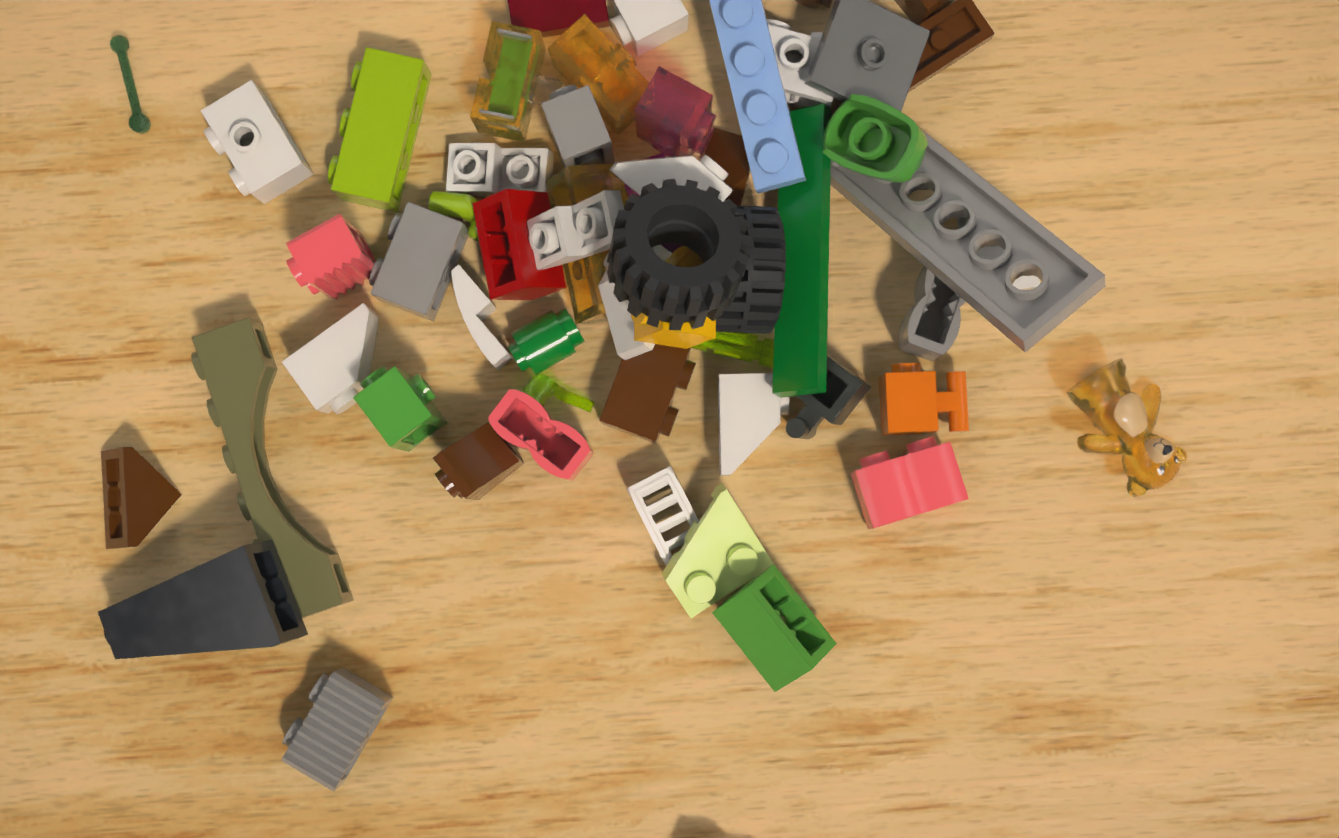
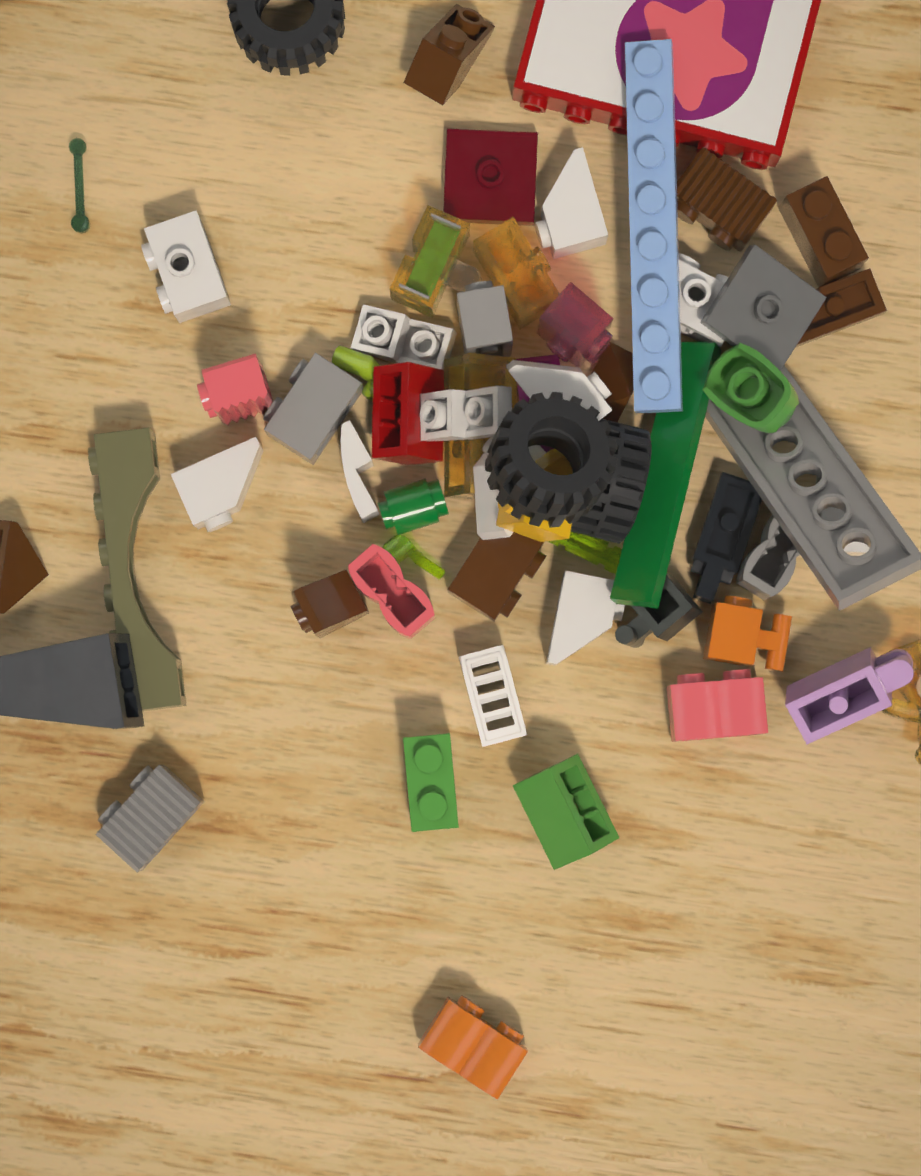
camera: 10 degrees right, 0 degrees up
(379, 129) = (301, 279): lime brick -> none
(400, 407) = (270, 538): bright green brick -> none
(625, 628) = (430, 782): none -> bright green brick
(715, 556) = (526, 736): yellowish green wing -> none
(877, 301) = (724, 534): none -> black hinge
(1043, 437) = (847, 691): none -> lavender brick

